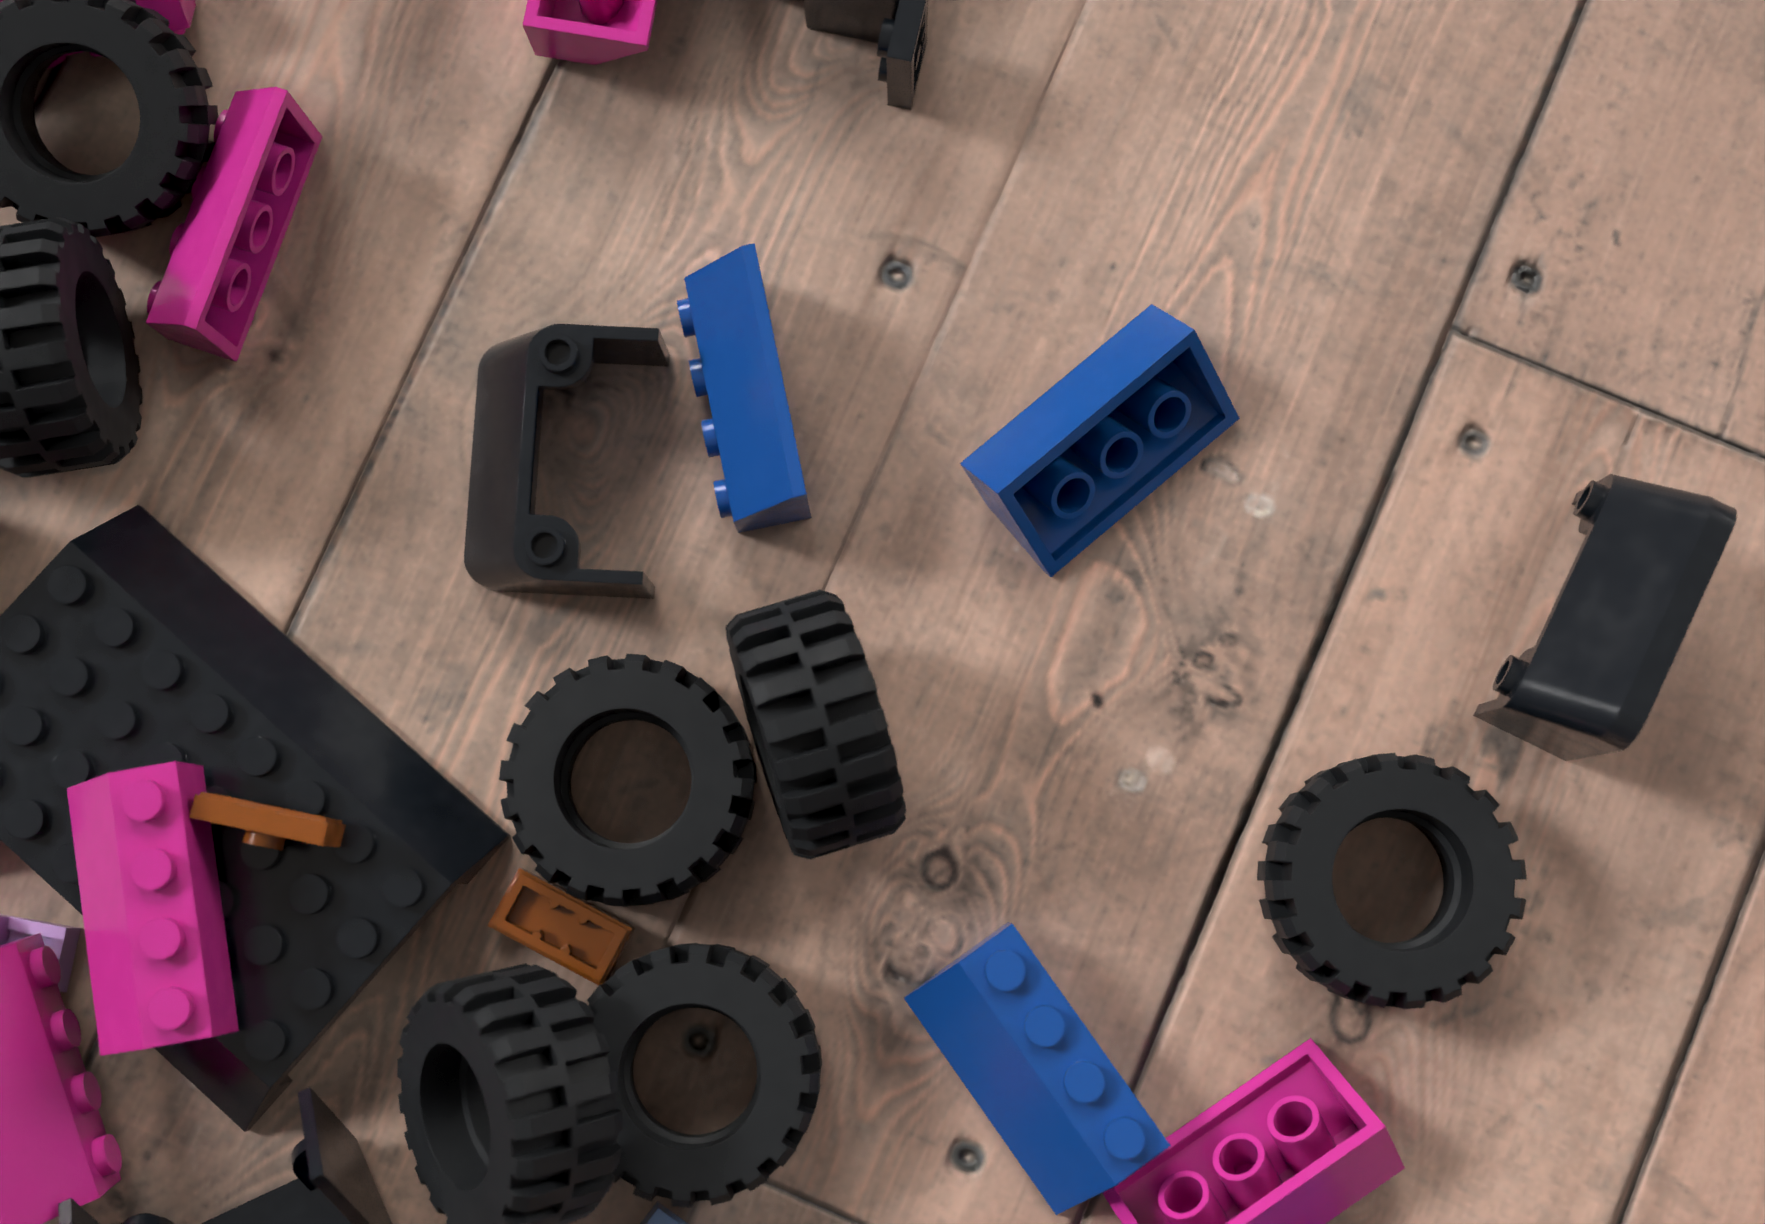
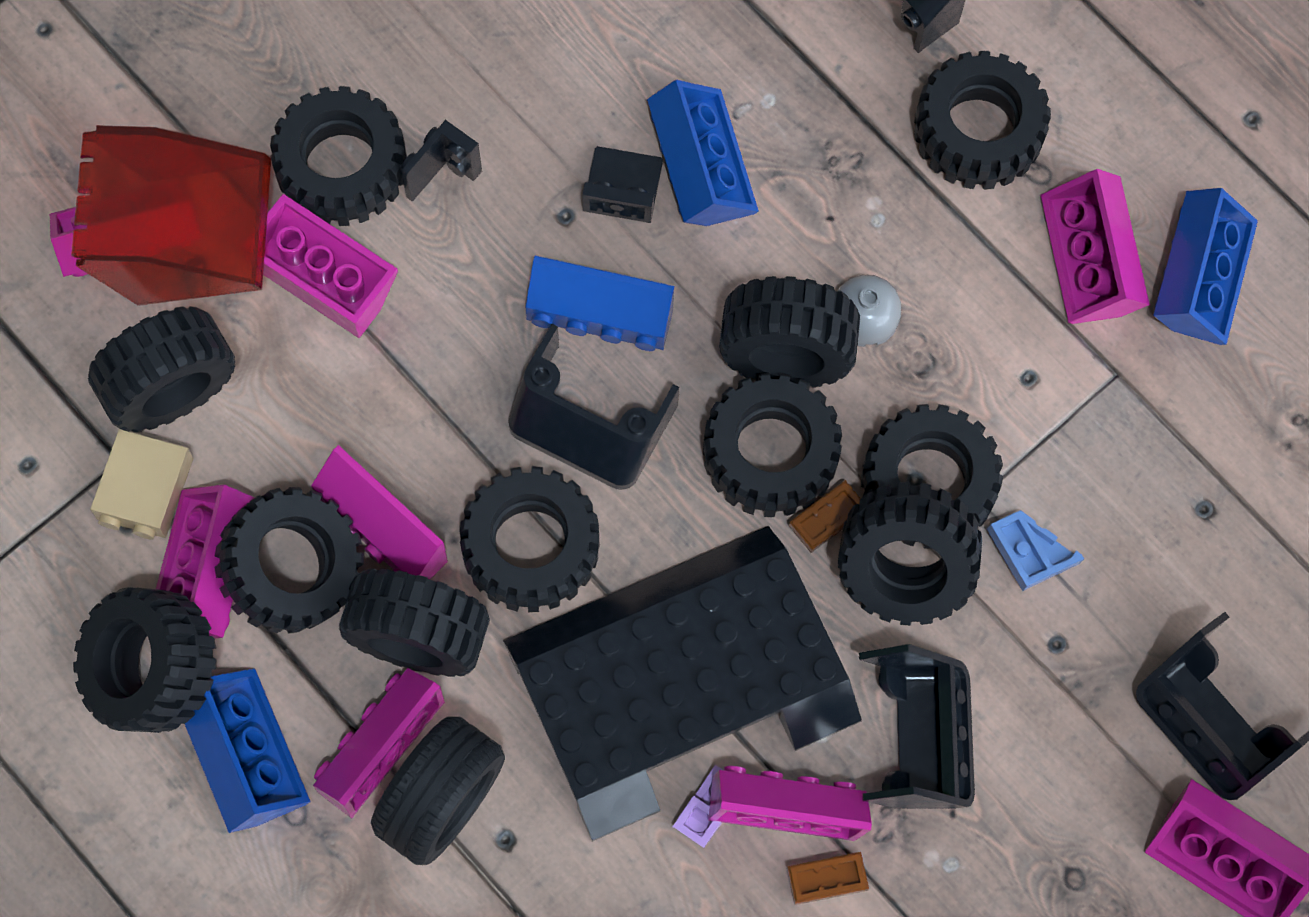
camera: 70 degrees left, 10 degrees down
(151, 908) = (734, 690): dark pink slope -> none
(231, 420) = (521, 494): none -> black tyre
(267, 824) = (718, 611): dark orange plate -> none
(955, 832) = (877, 306): none -> light grey cylinder
(987, 335) = (622, 184): none -> black bracket
(1036, 1070) = (999, 321): blue slope -> none

